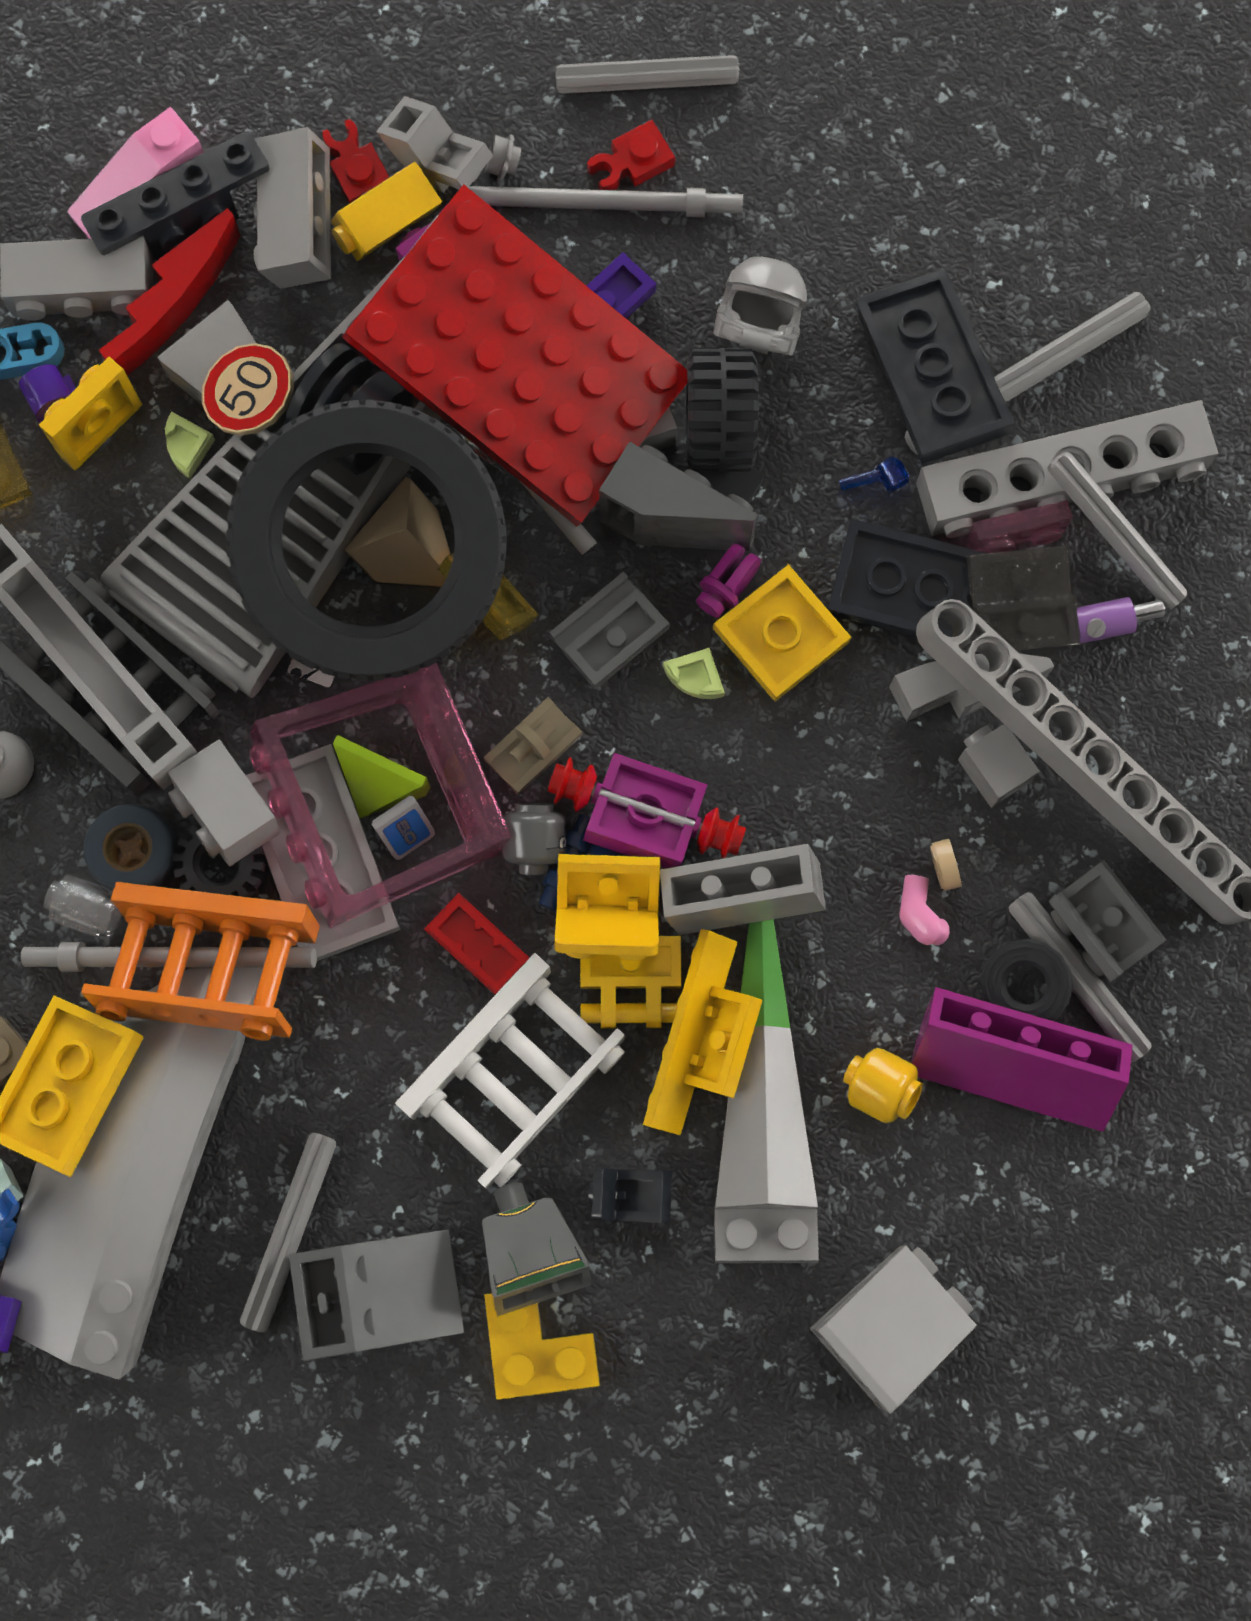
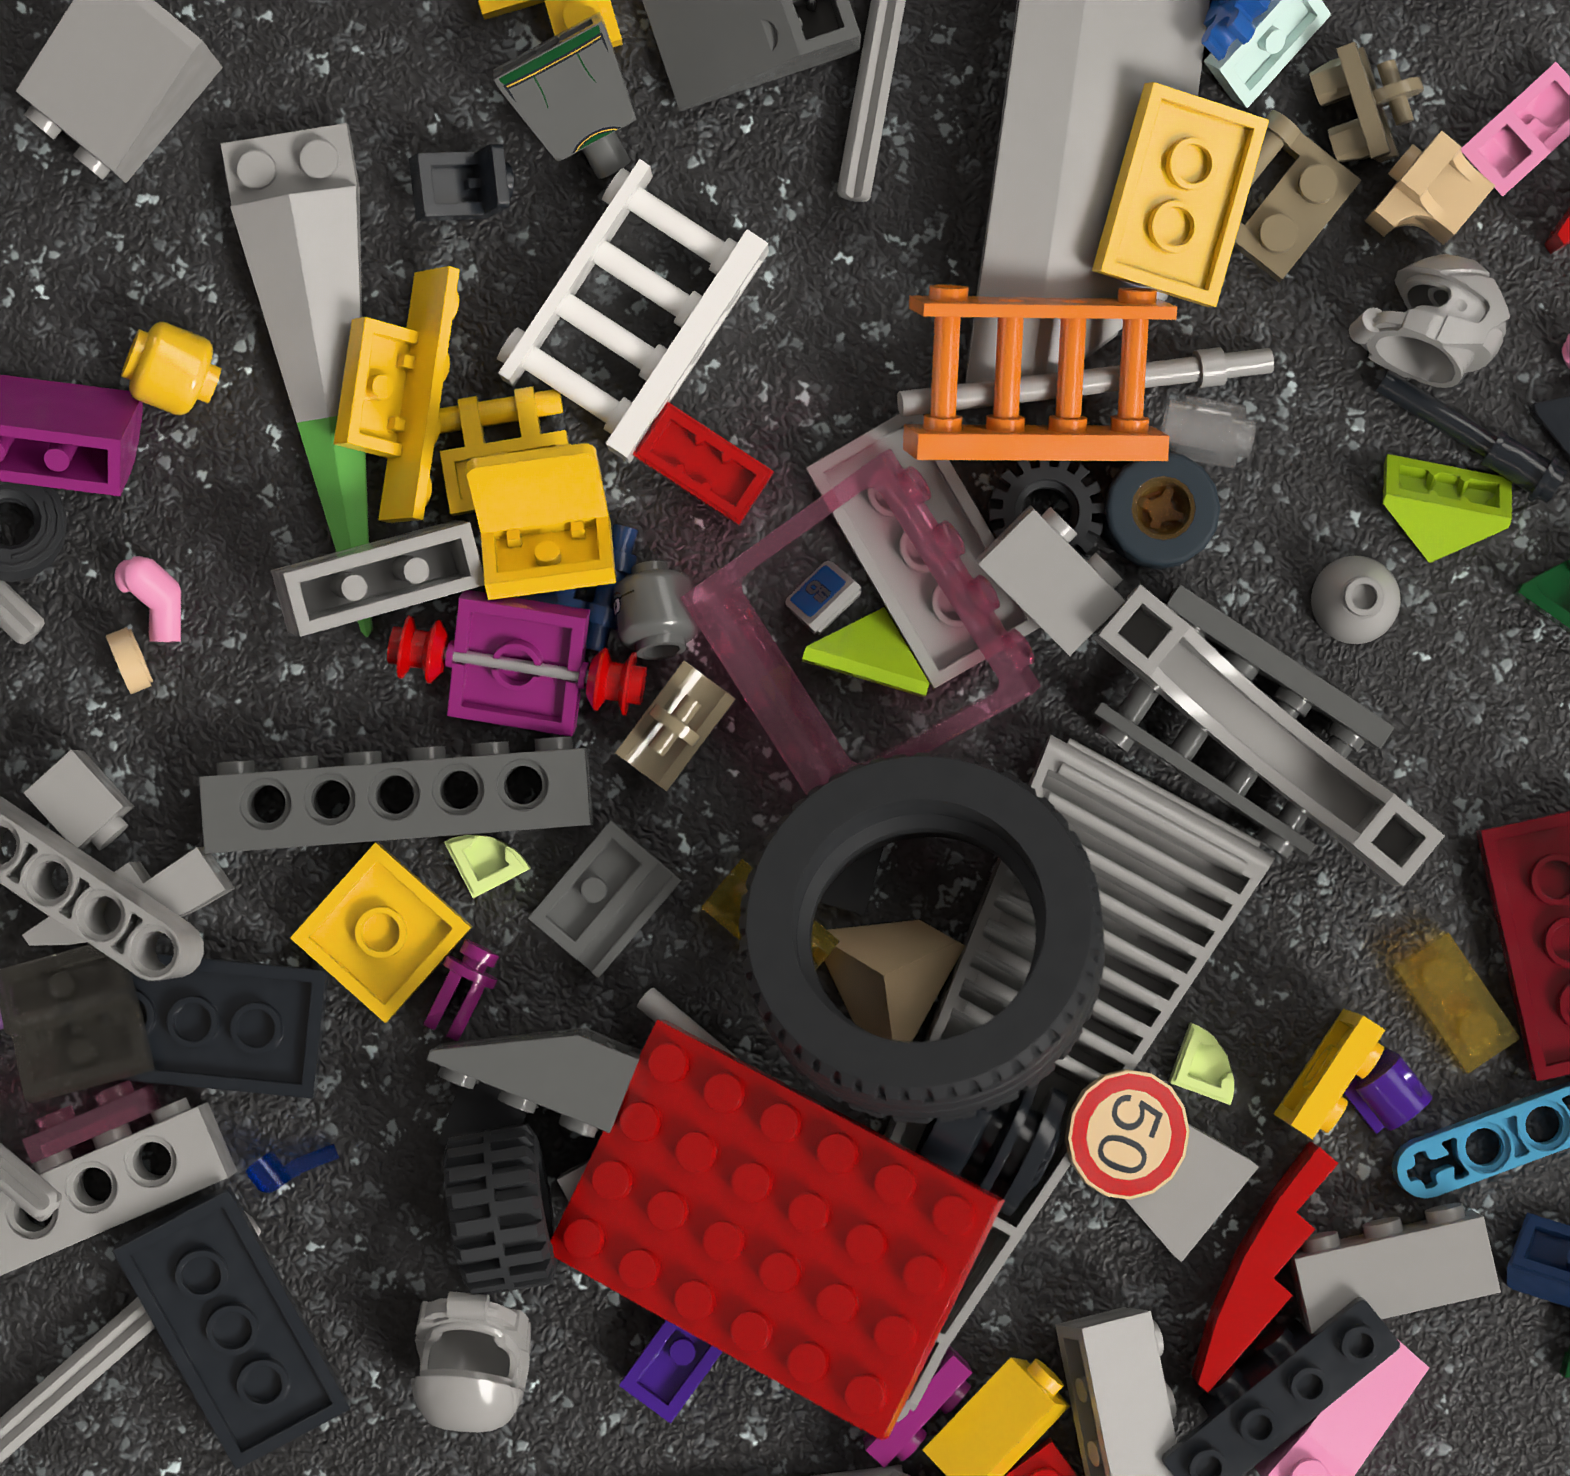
camera: 175 degrees right, 10 degrees up
(878, 722) = (234, 825): none -> dark grey brick

